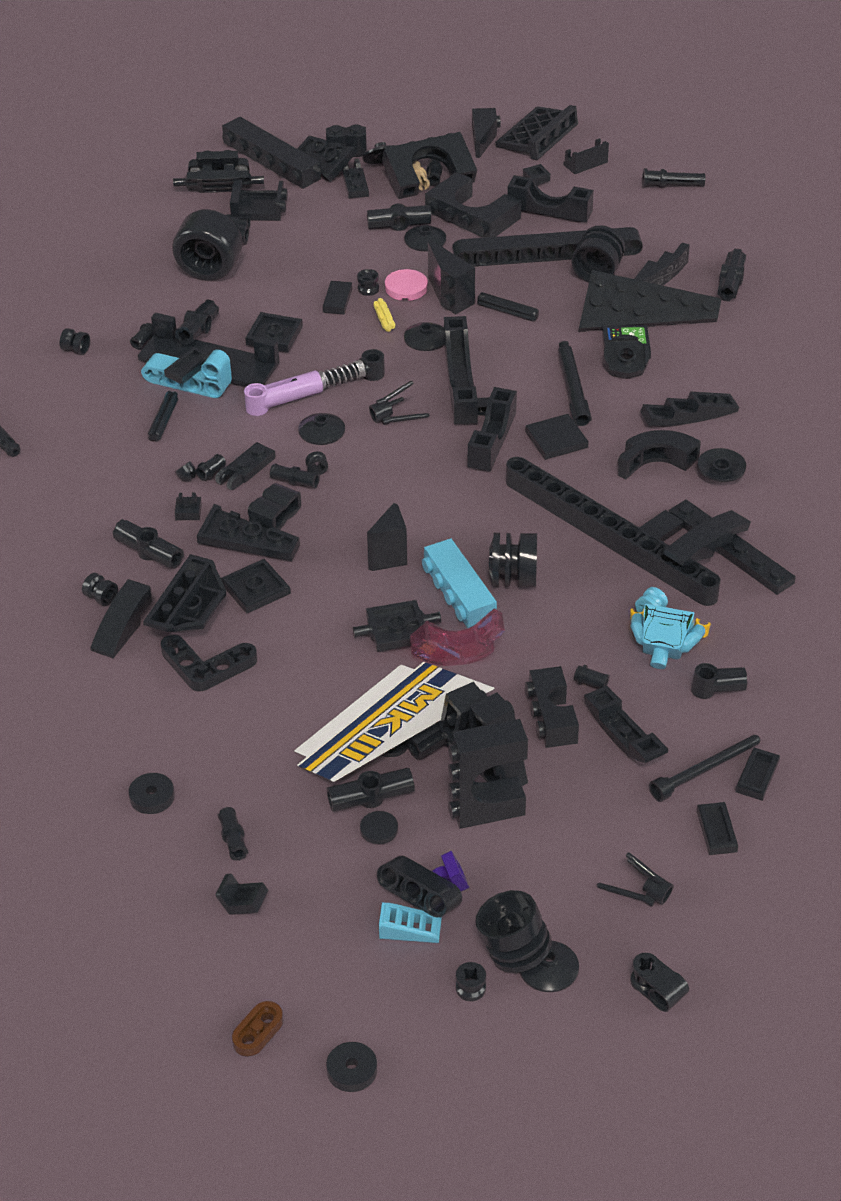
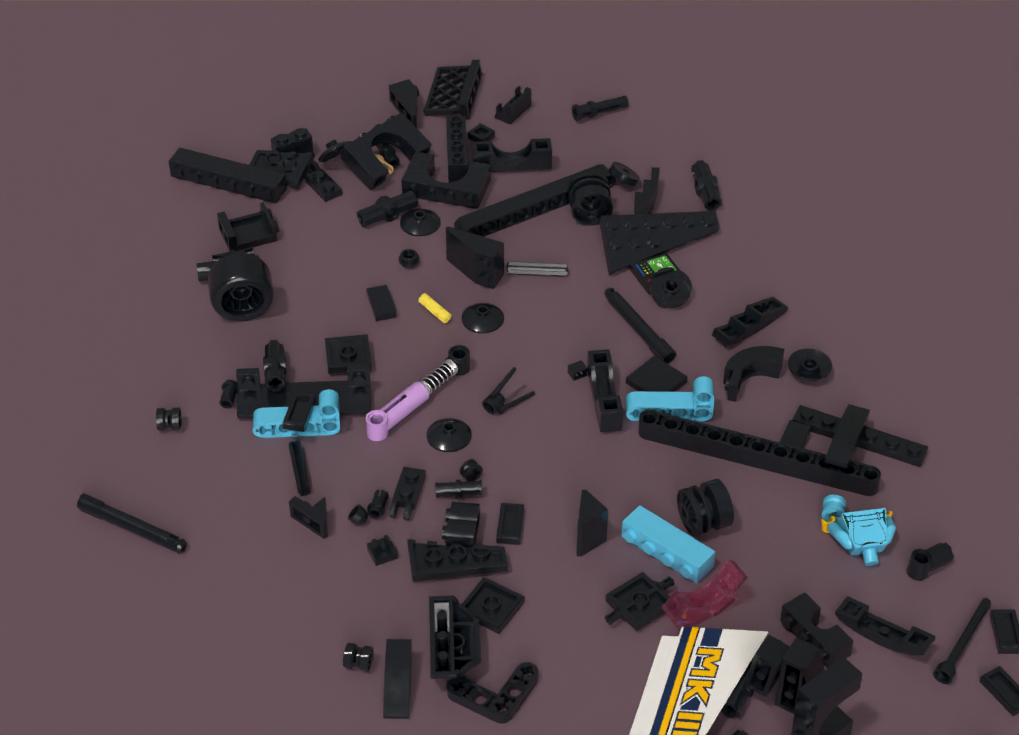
camera: 25 degrees left, 0 degrees up
(145, 459) = (311, 517): none -> black slope
(148, 543) = (372, 597): black piece -> none
(216, 172) = (195, 210): black piece -> none
(323, 521) = (510, 524): none -> black tile
(368, 282) = (400, 280): black wheel -> none
(389, 264) = (409, 258): none -> black plate
(406, 284) = (434, 273): bright pink tile -> none
(460, 377) = (559, 367): black arch -> none
(495, 184) = (456, 148): none -> black brick
(573, 467) = (689, 405): none -> medium azure beam
(590, 677) = (827, 593): black pin -> none
(652, 242) = (624, 174): none -> black piece

